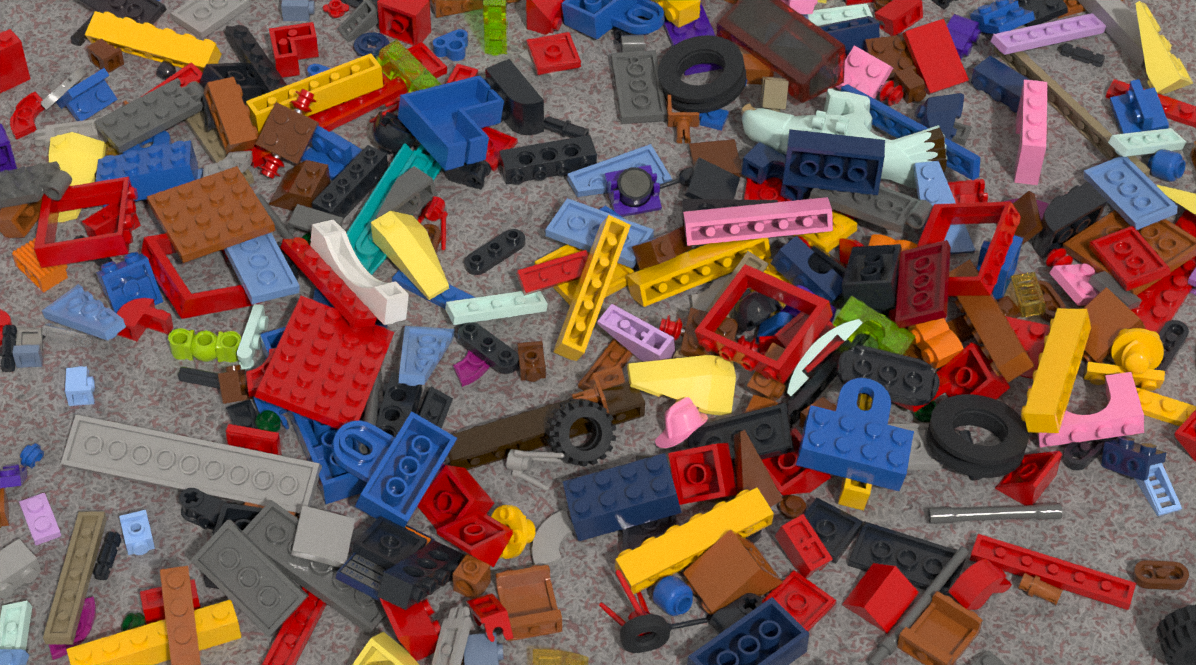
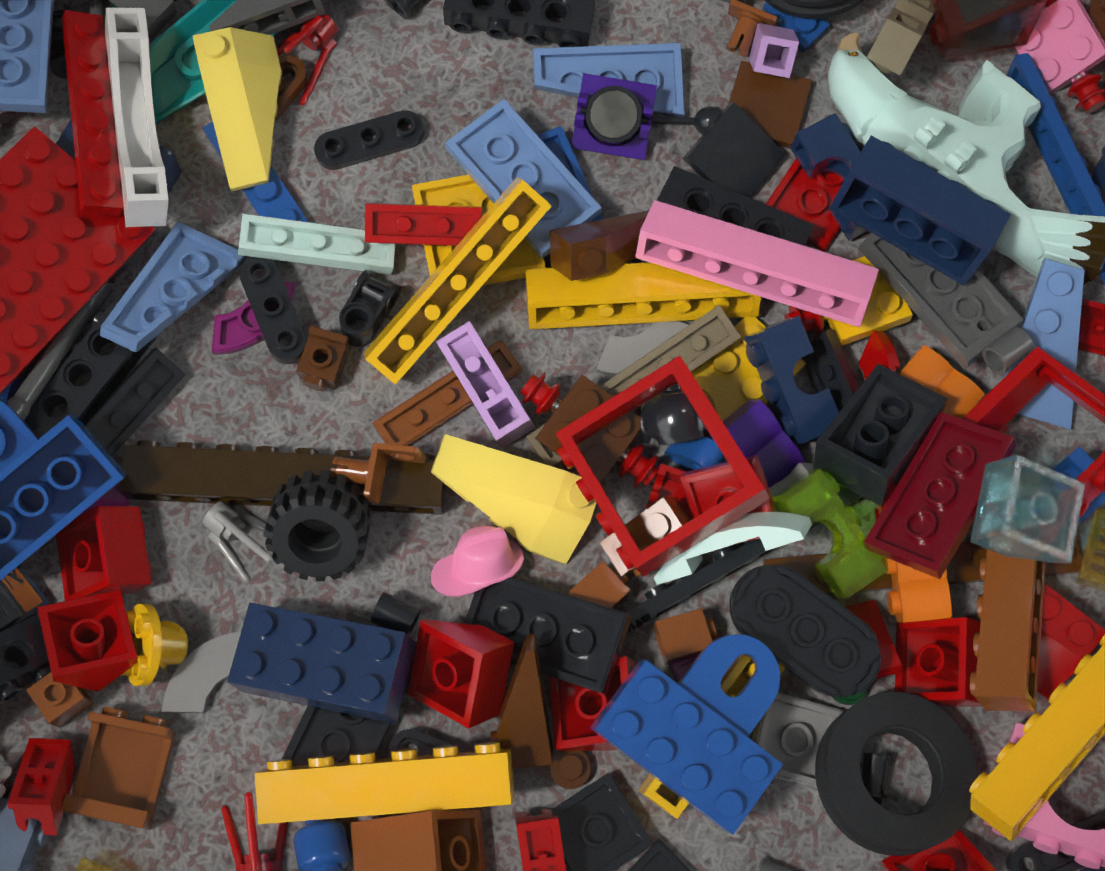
camera: 20 degrees right, 25 degrees up
(543, 328) = (370, 302): none -> black piece
(705, 129) = (773, 50): none -> lavender brick
(973, 262) = (1027, 511): none -> clear light blue slope

